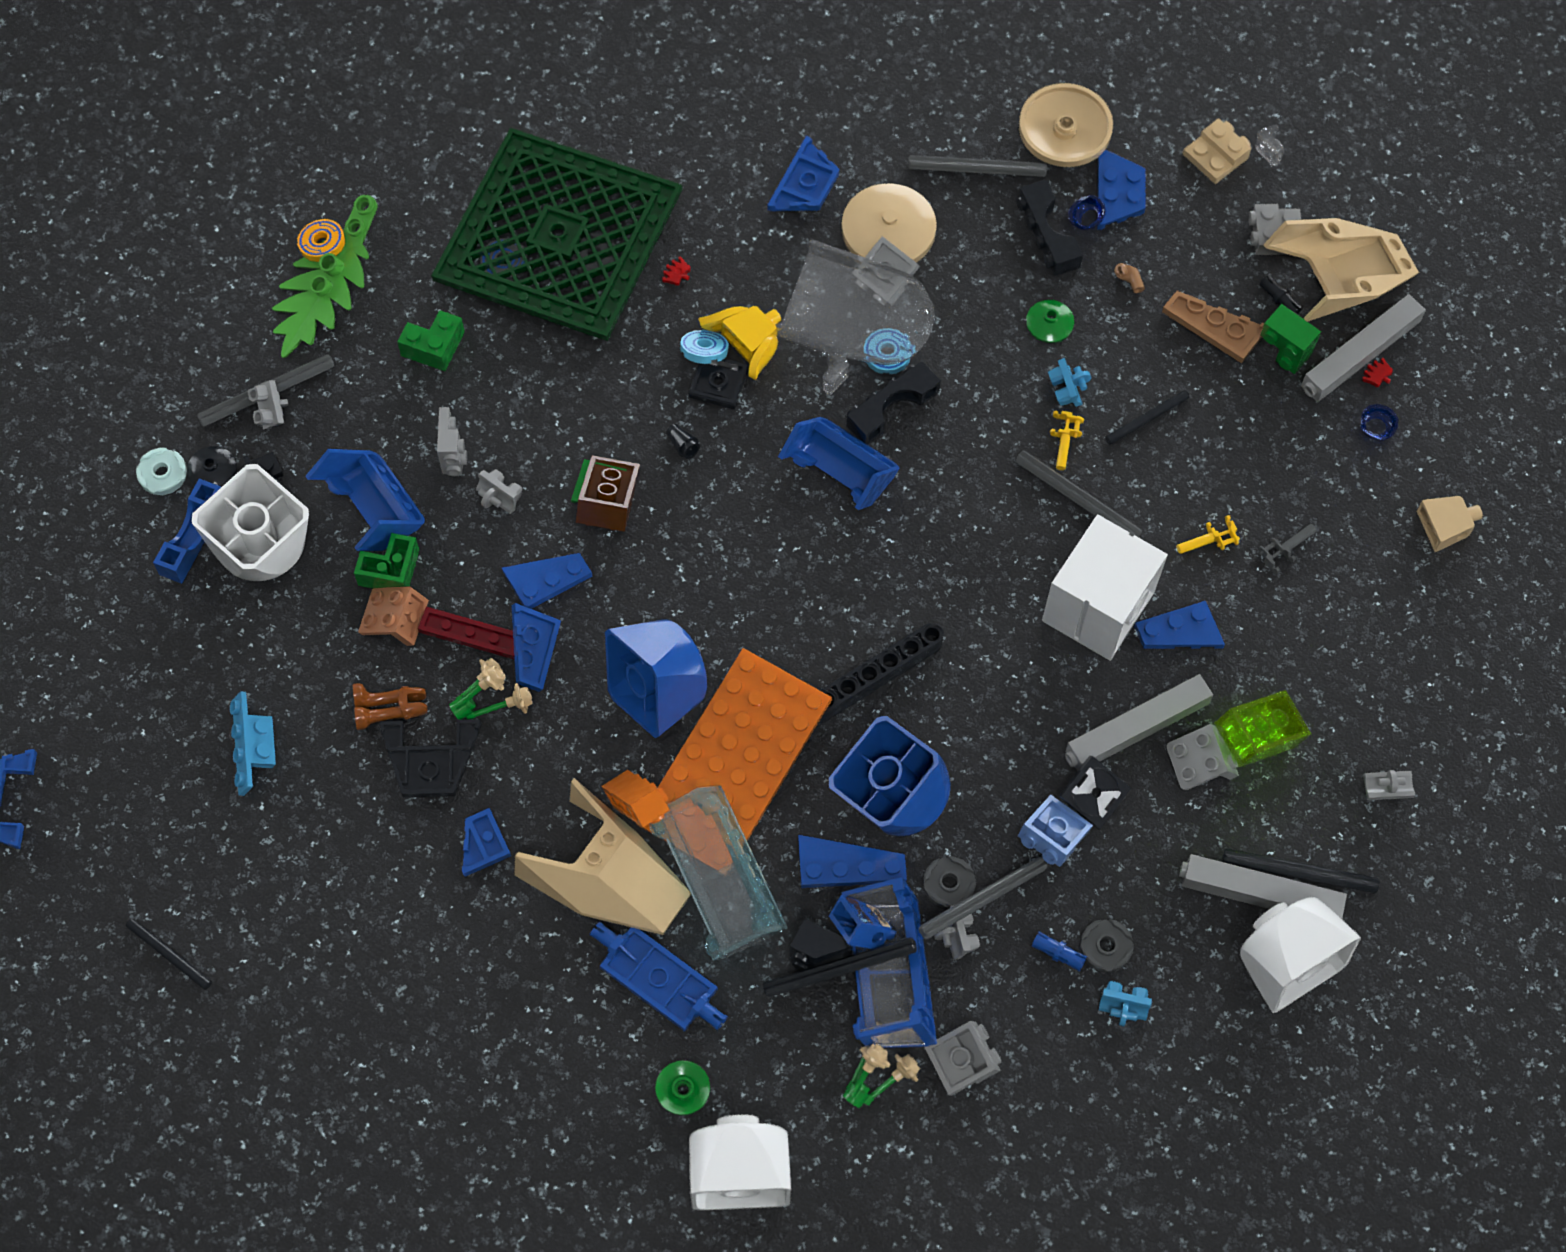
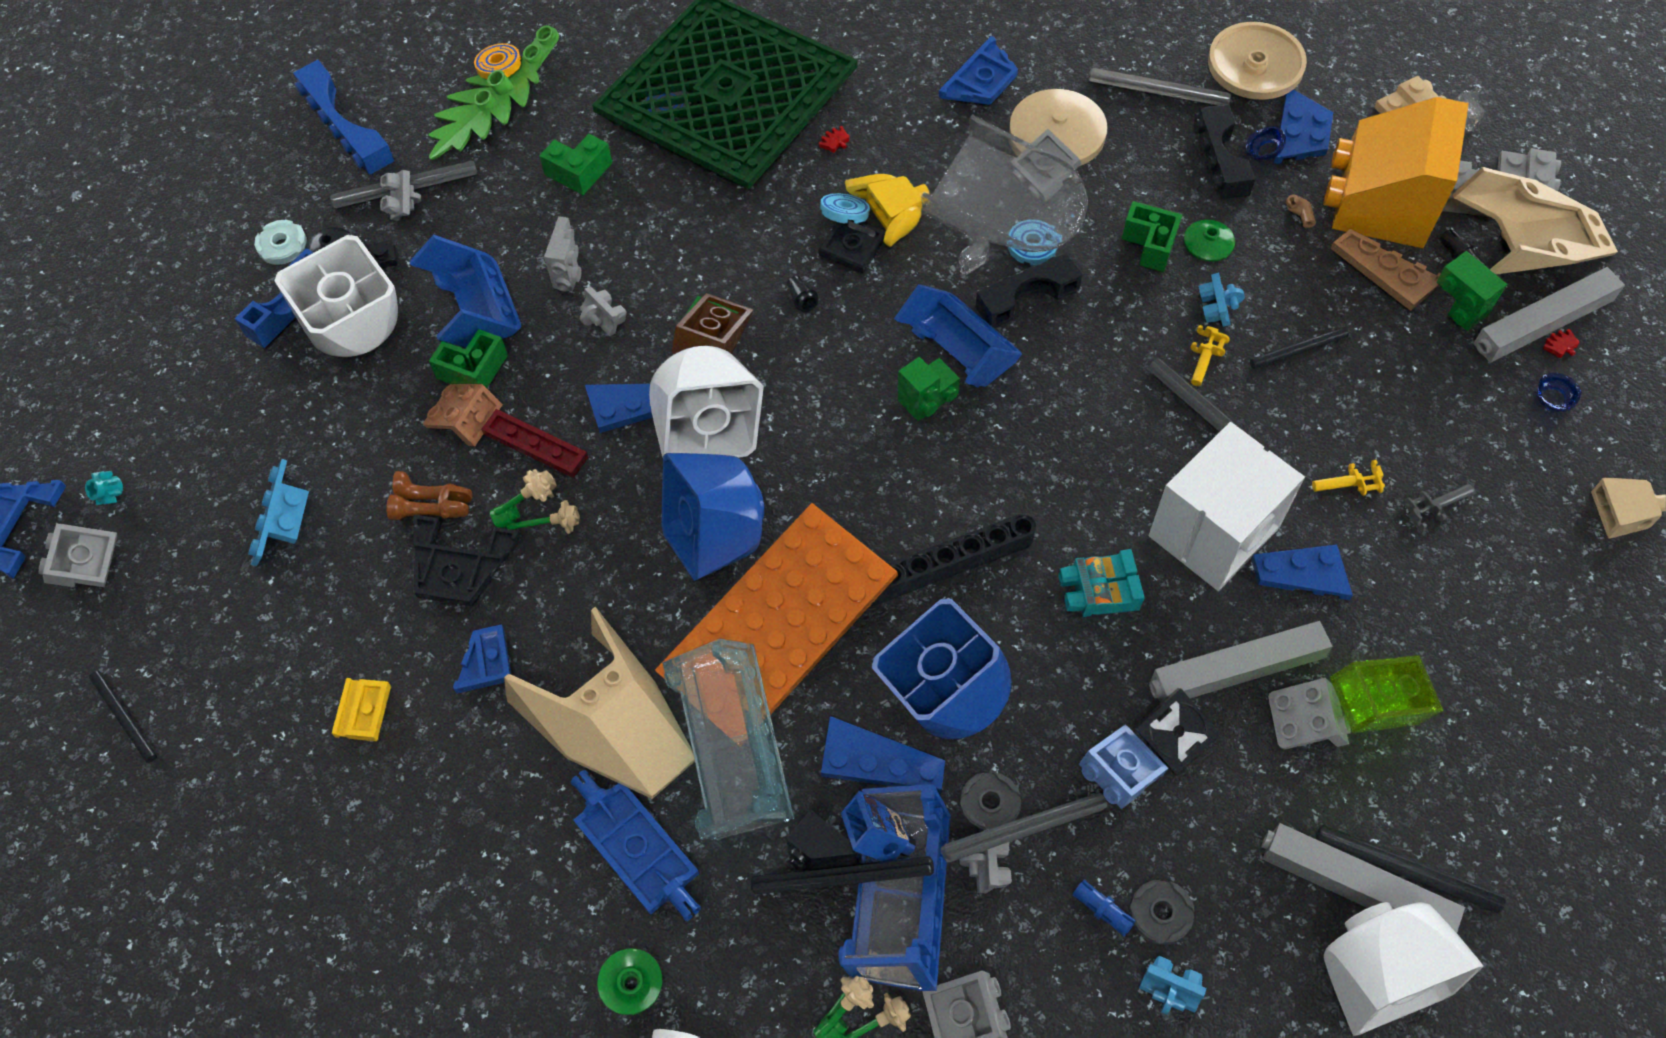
camera: 15 degrees right, 5 degrees down
(77, 817) = (77, 556): none -> light grey plate
(78, 748) = (103, 487): none -> teal gear
(216, 355) = (365, 144): none -> blue arch
(385, 906) = (361, 709): none -> yellow plate
(533, 645) = (594, 465): blue wing -> none
(626, 573) = (705, 403): none -> white piece
(637, 798) = (656, 640): orange brick -> none
(819, 516) = (926, 387): none -> green brick
(1001, 323) = (1153, 229): none -> green brick
(1010, 674) = (1103, 584): none -> teal hips
(1210, 230) = (1398, 171): none -> light orange slope
(1331, 201) = (1536, 165): none -> light grey plate
(1389, 785) = (1530, 787): light grey hips -> none

